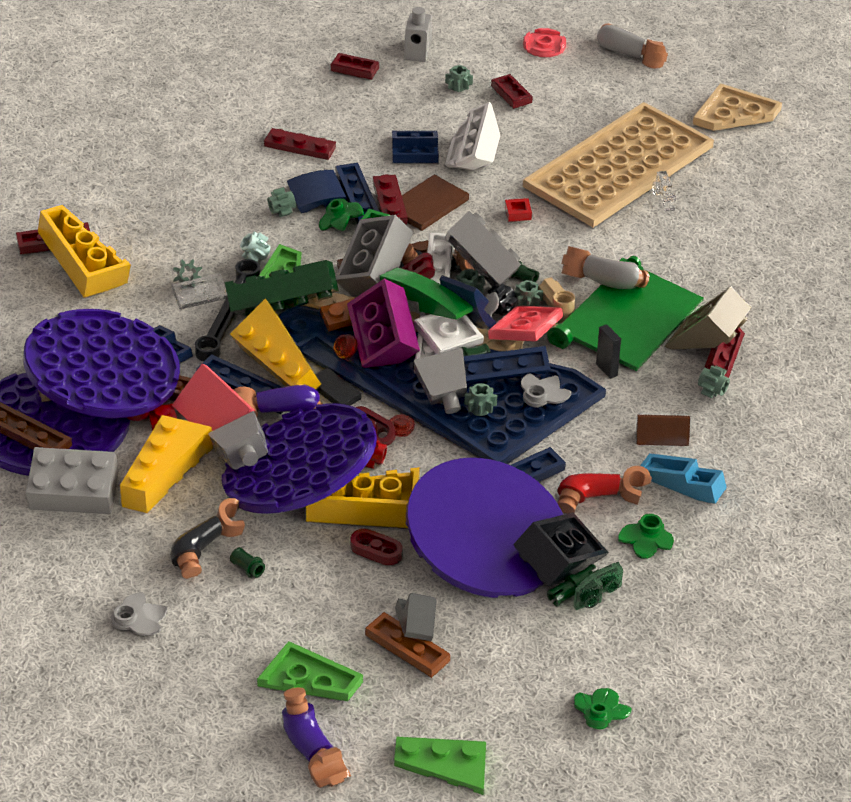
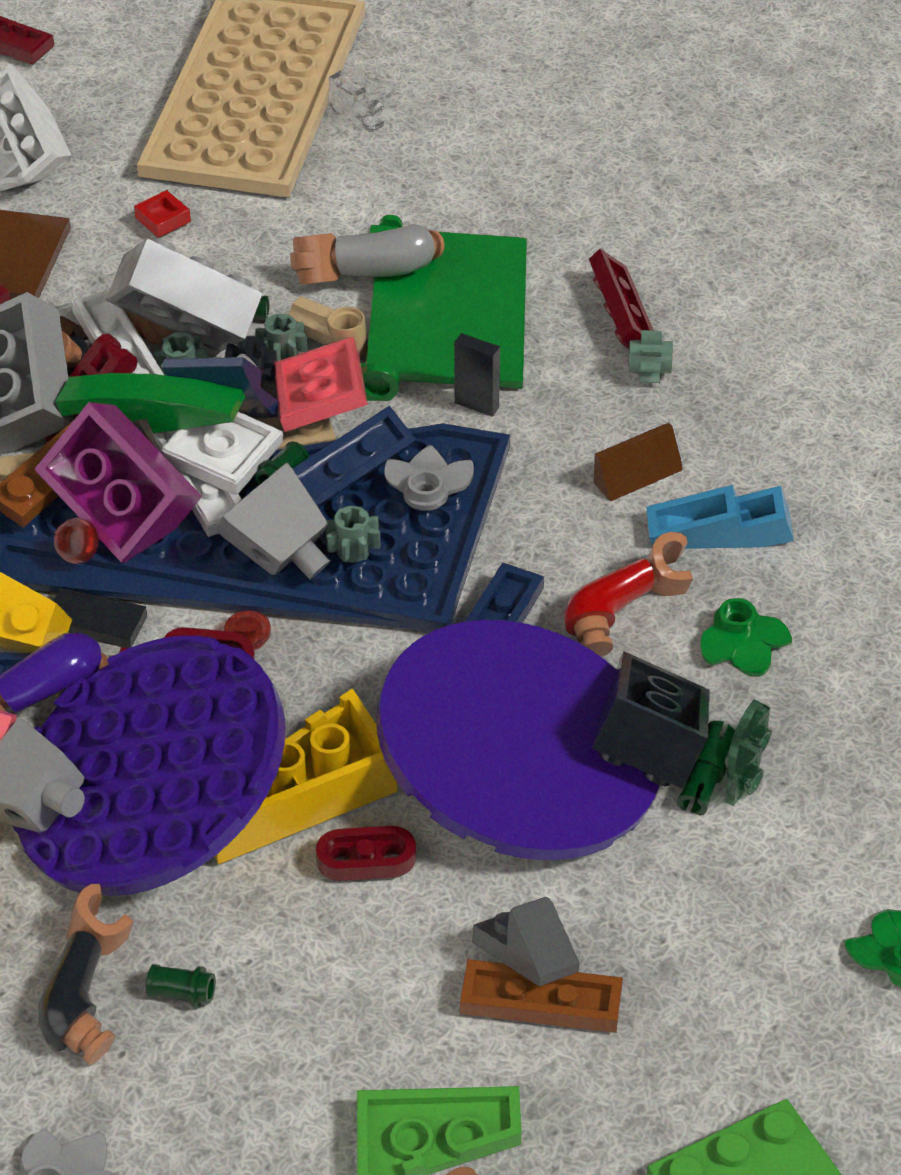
camera: 30 degrees left, 5 degrees up
(712, 322) = (587, 270): dark tan slope -> none

